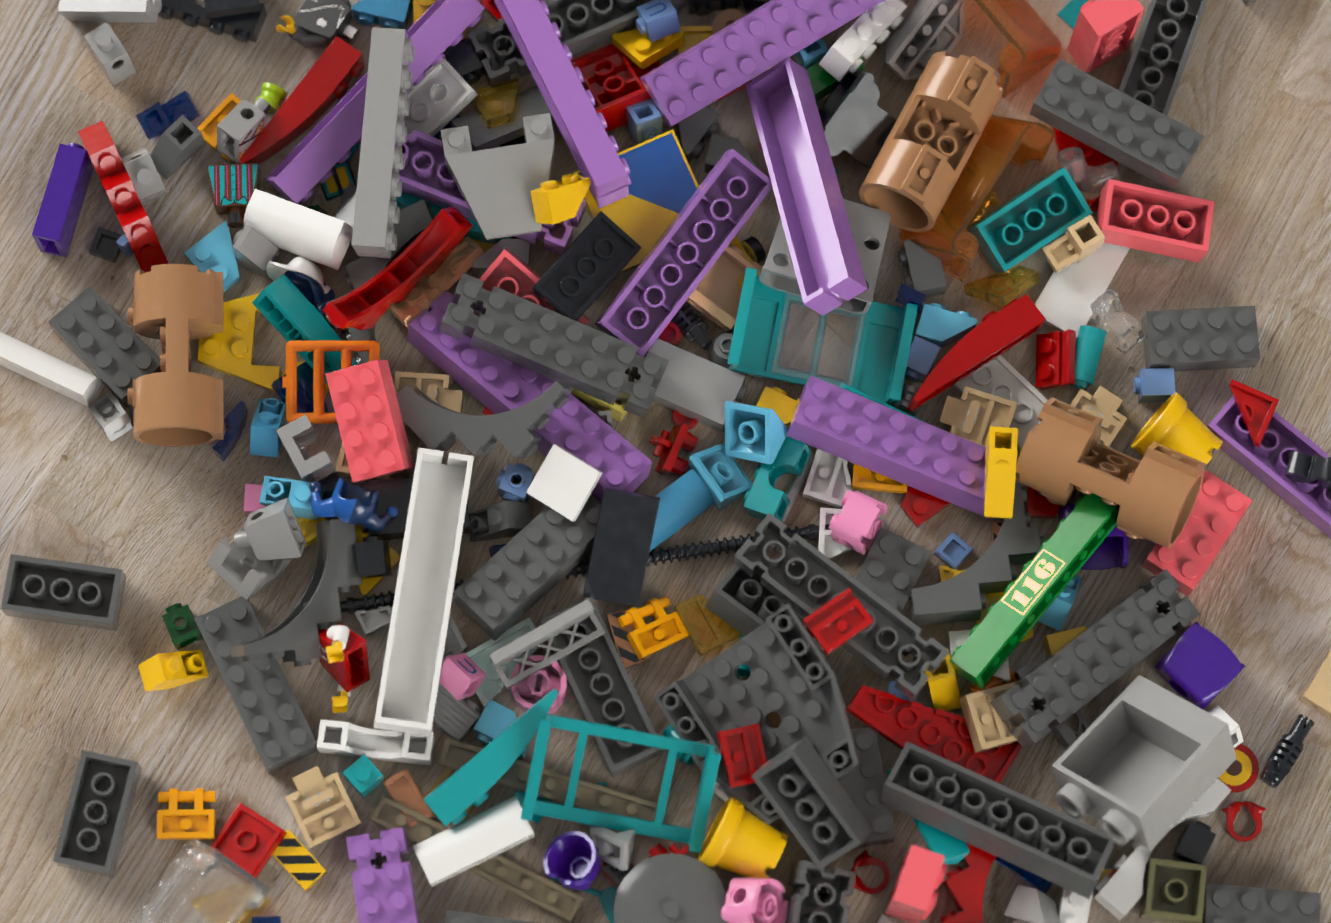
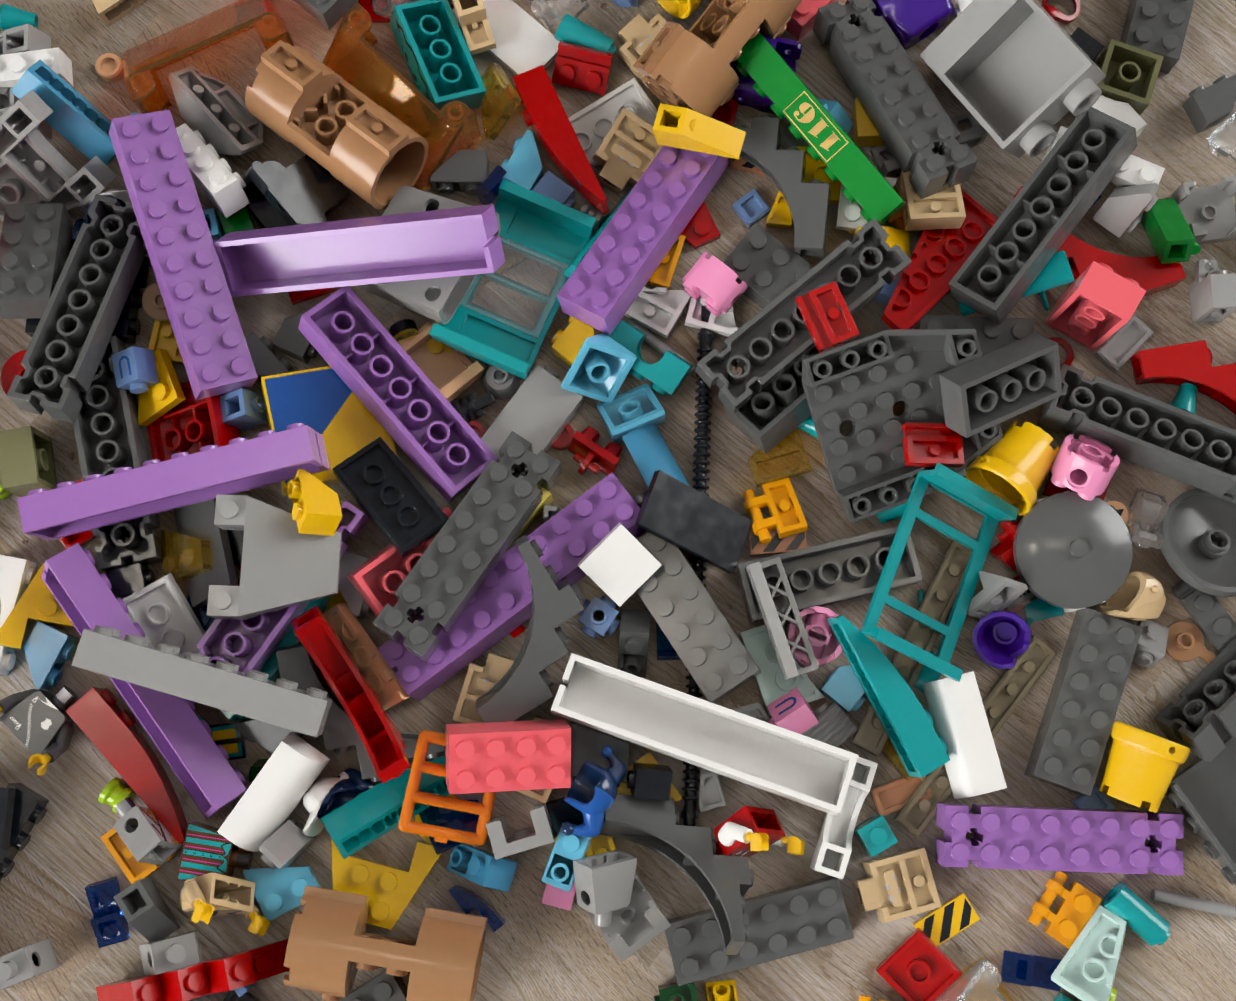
camera: 75 degrees left, 5 degrees up
(199, 207) = (222, 896): none -> tan torso

